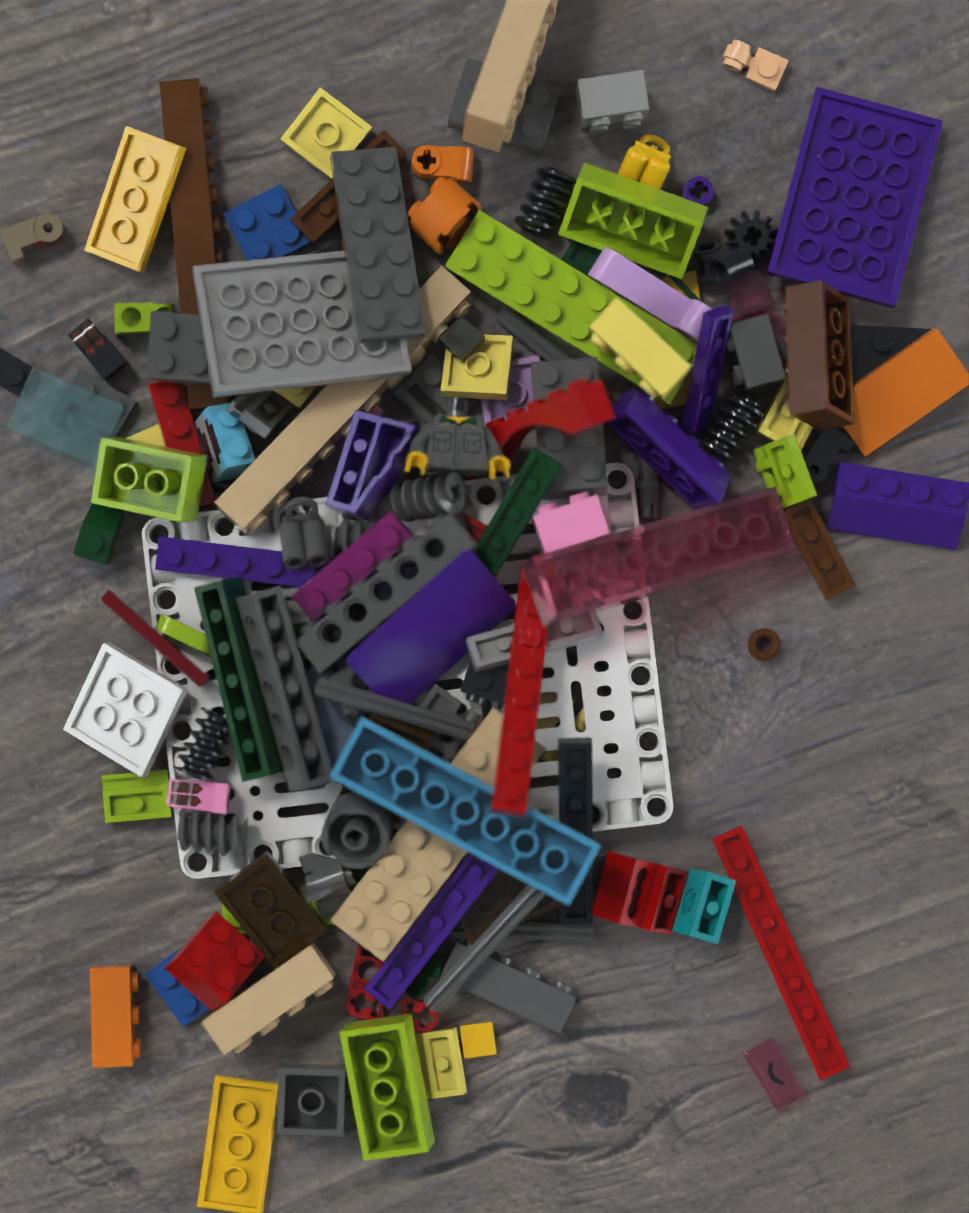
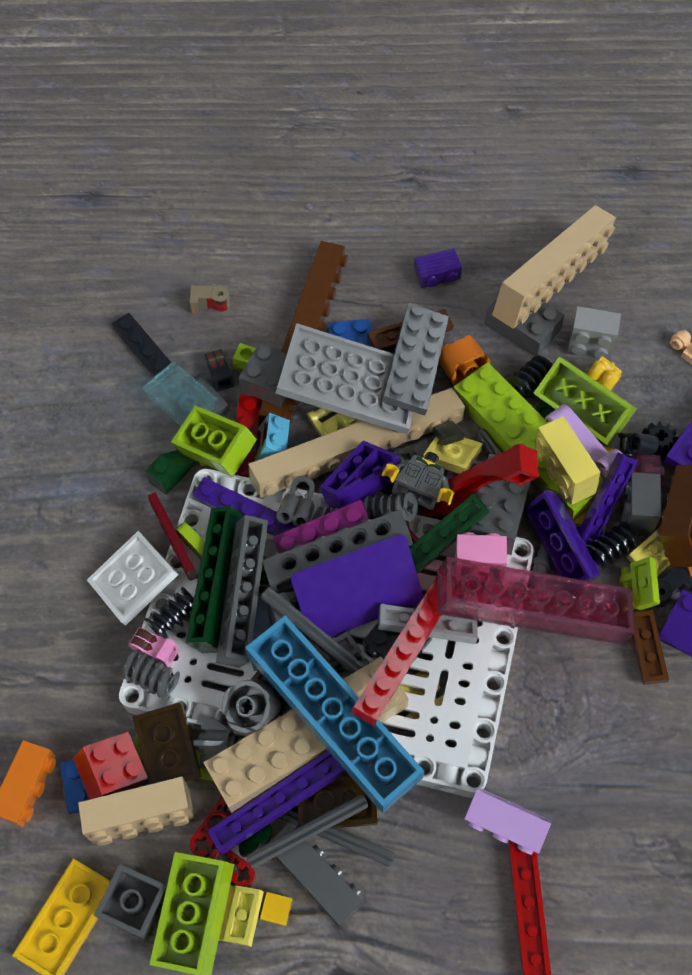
camera: 25 degrees right, 25 degrees down
(135, 199) = (278, 296): yellow tile -> none
(135, 797) = (110, 639): lime plate -> none
(261, 411) = (300, 428): dark grey plate -> none
(325, 128) = (407, 292): light yellow plate -> none
(349, 59) = (437, 268): none -> dark purple brick
(450, 162) = (483, 336): orange piece -> none
(576, 812) = (417, 745): black plate -> none
(639, 893) = (439, 841): red piece -> none
(690, 186) = (635, 400): dark purple bush -> none
(704, 906) = (484, 868): teal brick -> none
(713, 843) = (508, 821): none -> lavender brick
(773, 639) = (592, 692): reddish brown plate -> none

